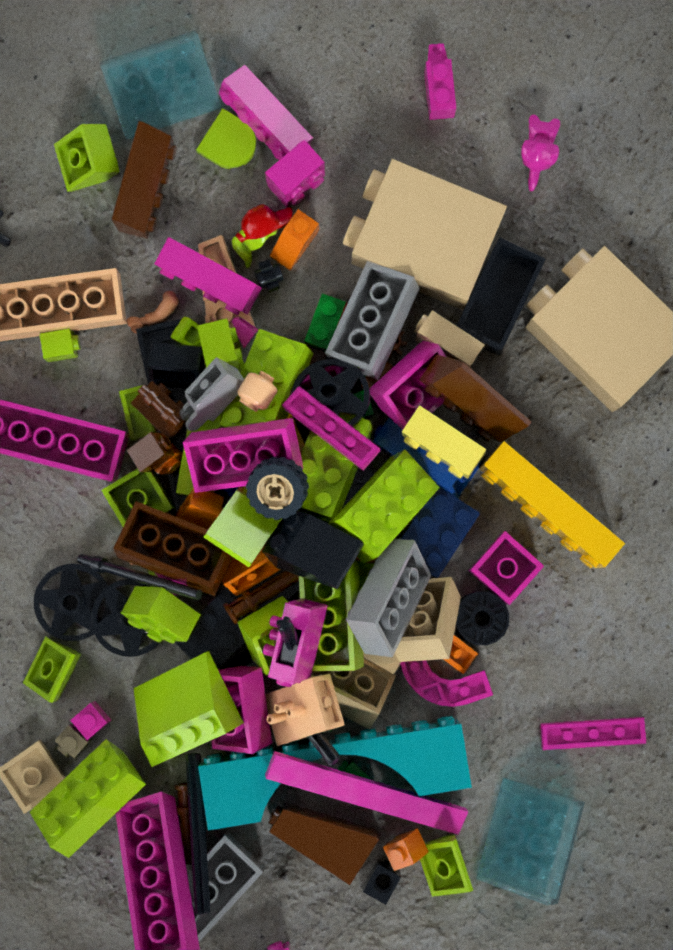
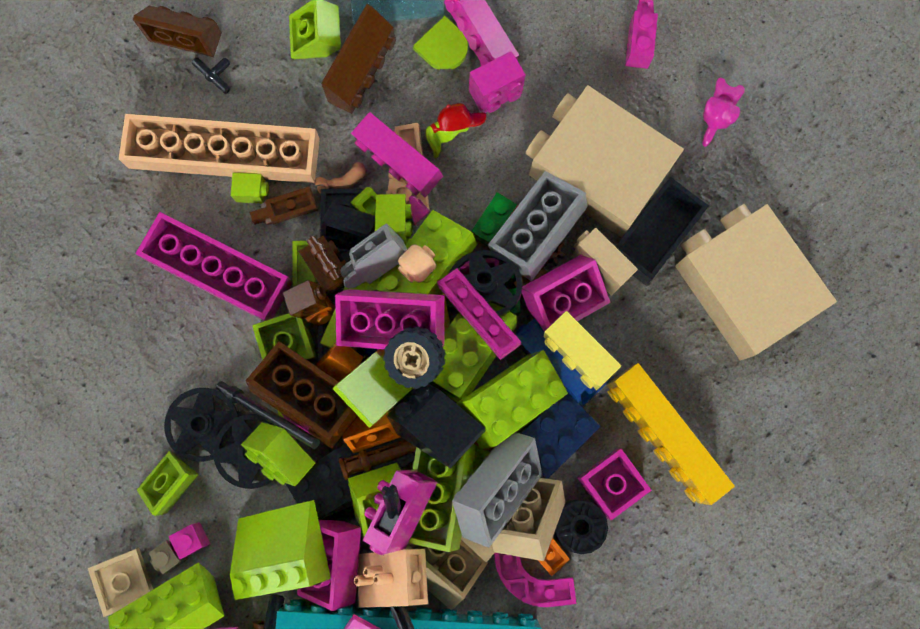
camera: 10 degrees right, 5 degrees down
(102, 357) = (285, 207): none -> reddish brown hinge
(269, 275) = (452, 167): black gear -> none
(294, 239) = (483, 141): orange slope -> none
(472, 399) = (617, 317): reddish brown slope -> none

